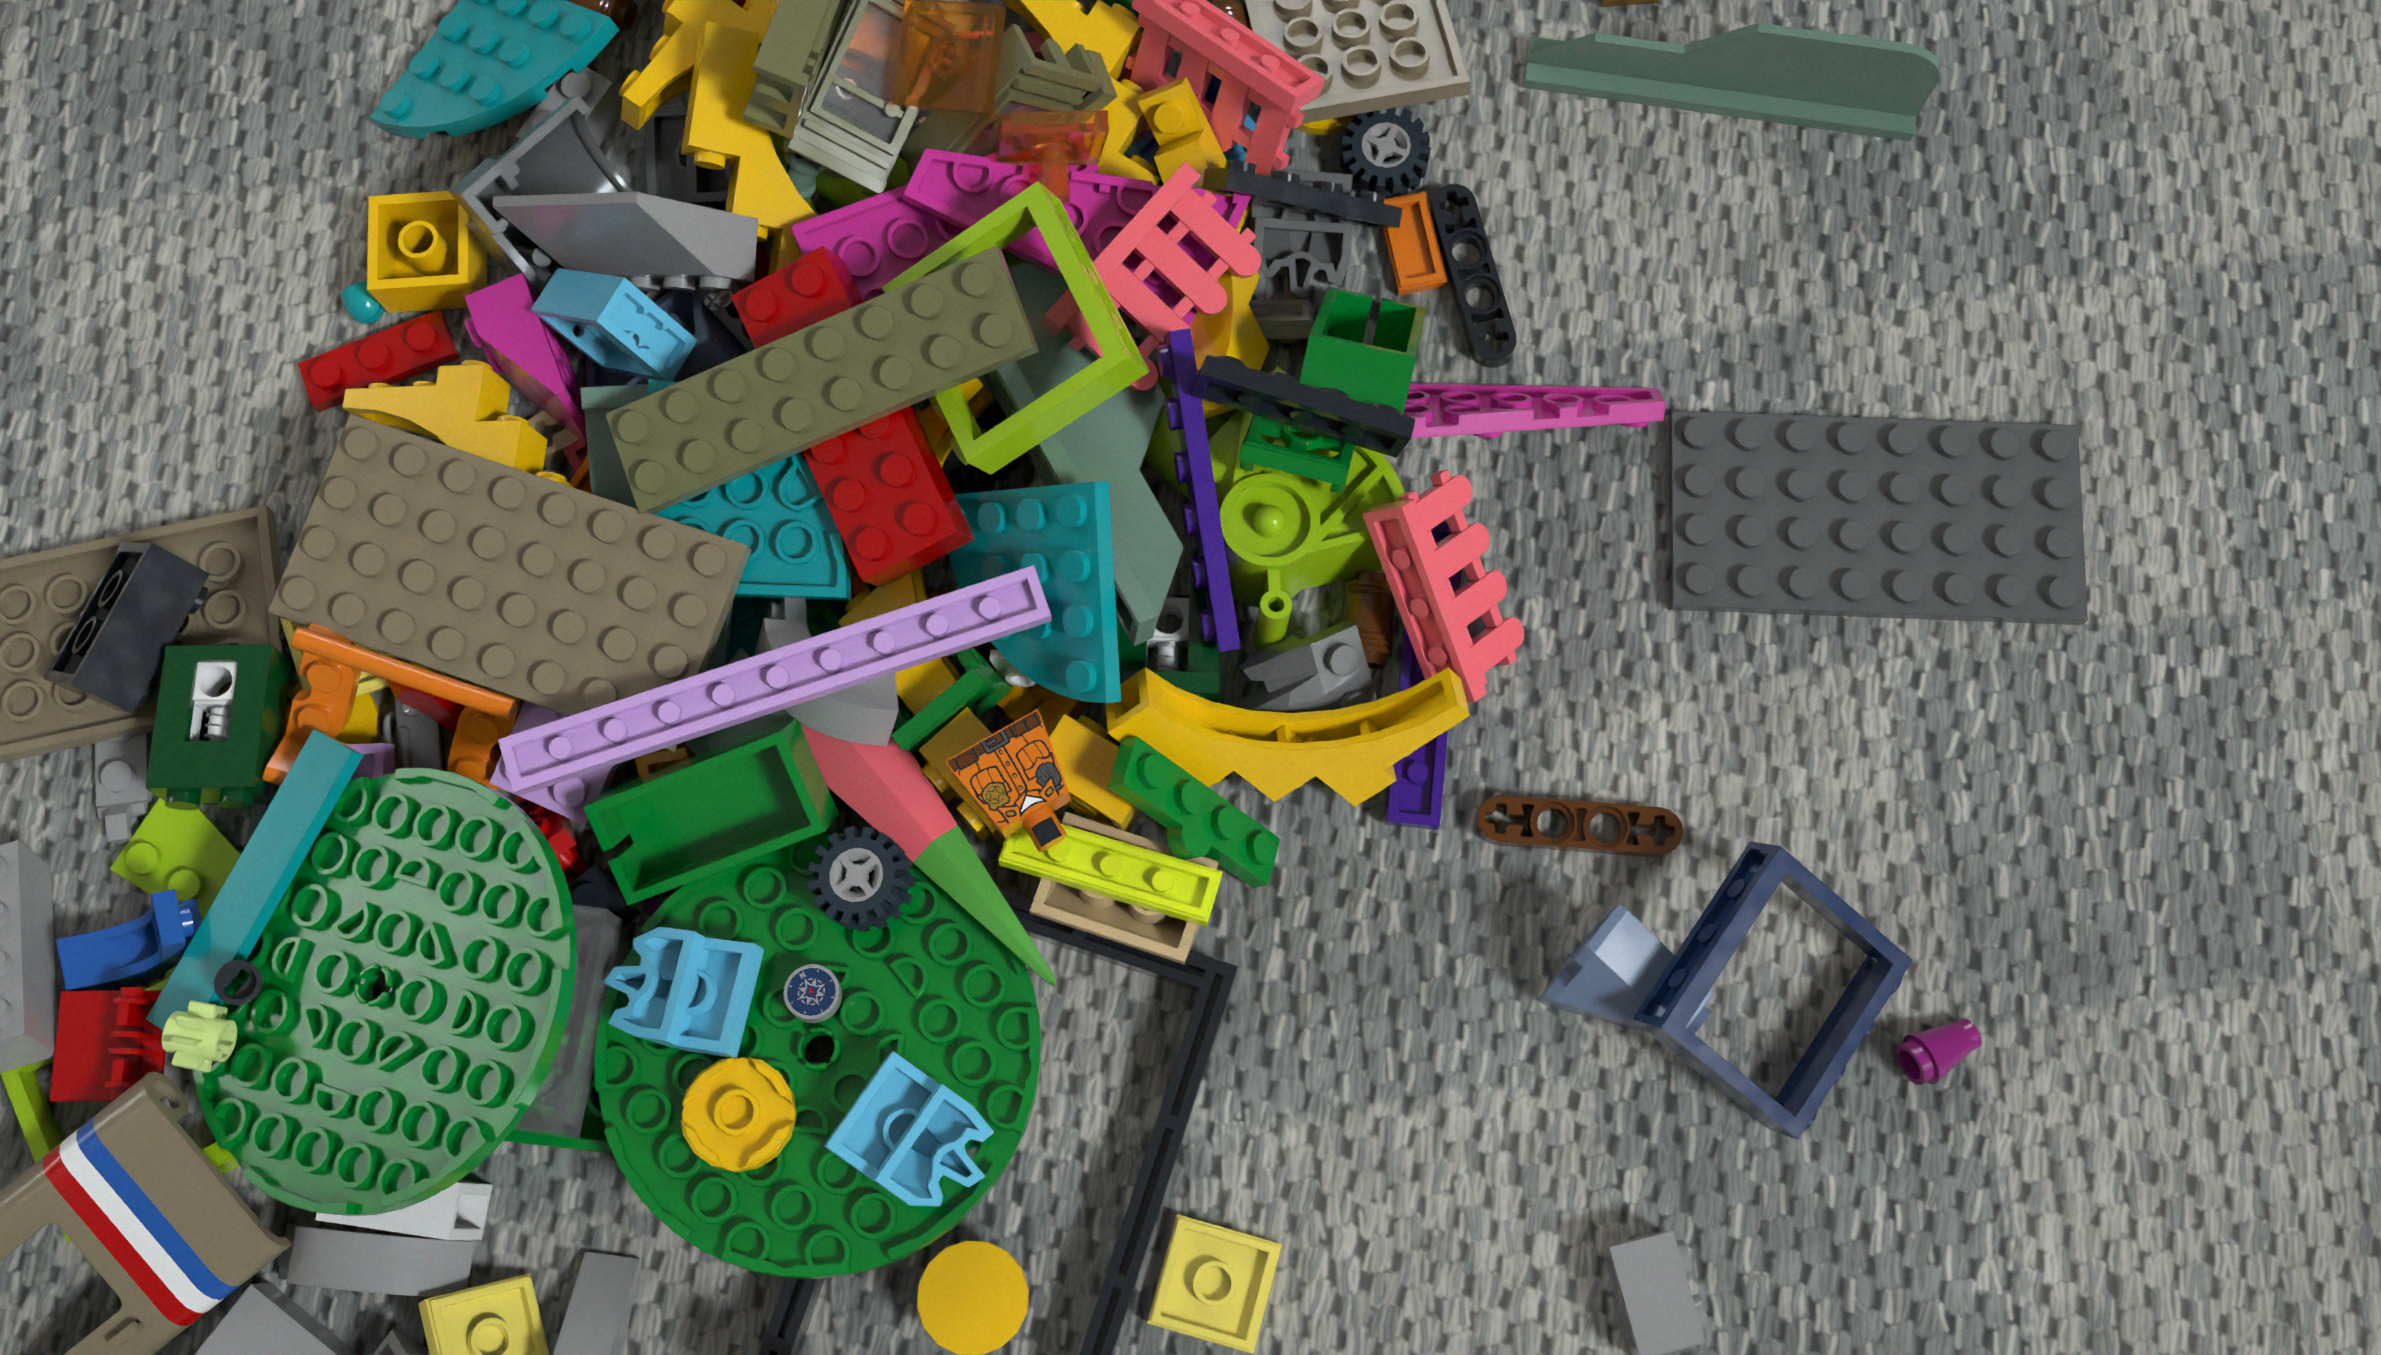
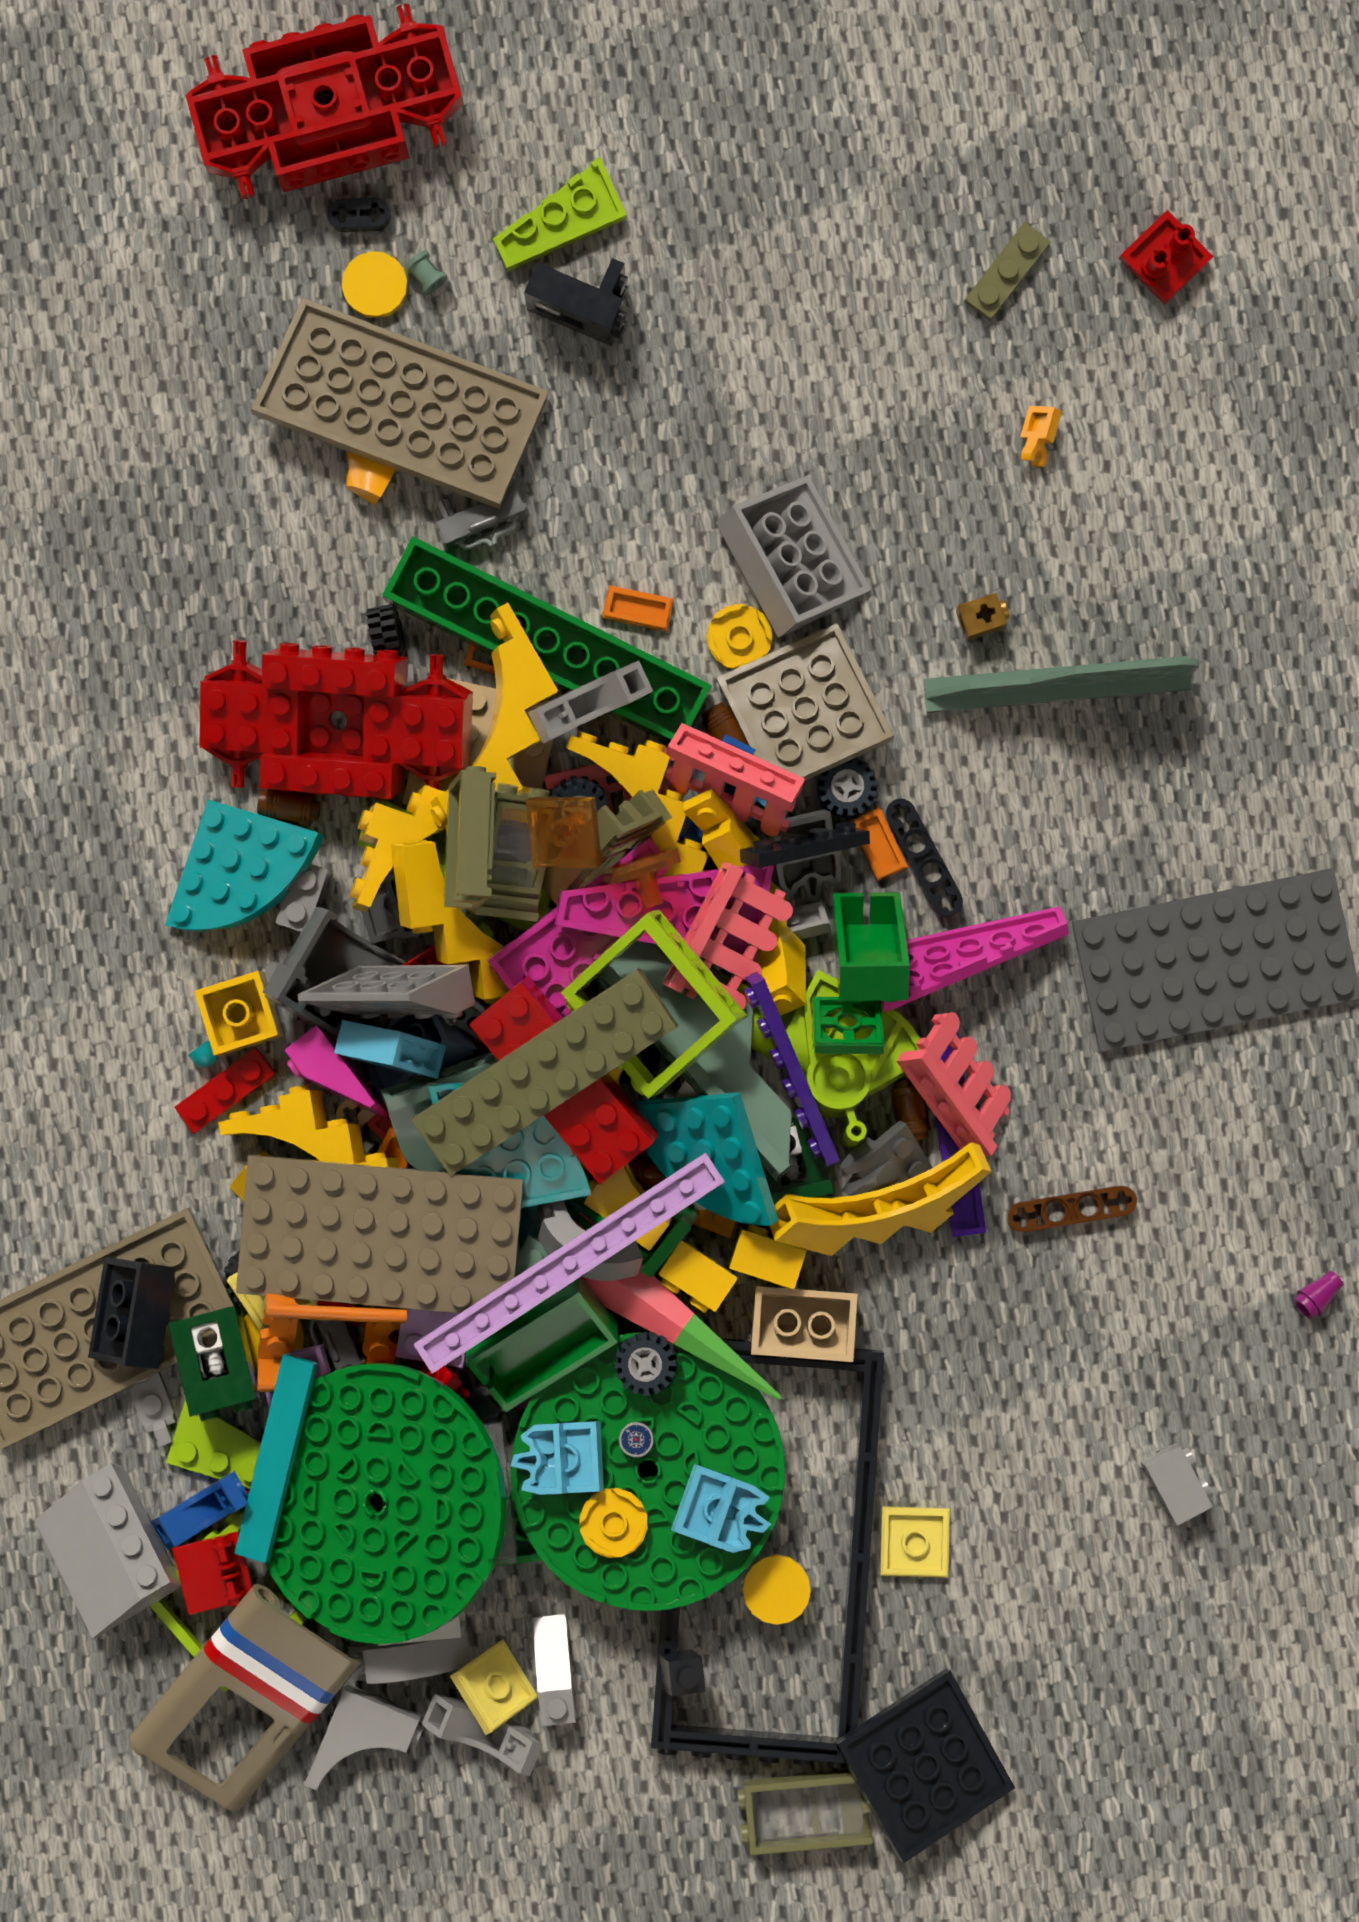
camera: 15 degrees left, 10 degrees up
(199, 1036) = (277, 1558): yellowish green gear -> none
(247, 991) = (293, 1522): black hinge -> none
(1016, 780) = (726, 1283): torso -> none
(1119, 872) = (794, 1316): neon yellow tile -> none
(1194, 815) = (836, 1270): green hinge -> none
(1302, 406) = (861, 1010): black plate -> none
(1614, 973) = (1122, 1301): sand blue slope -> none
(1708, 952) = (1169, 1273): dark blue window -> none

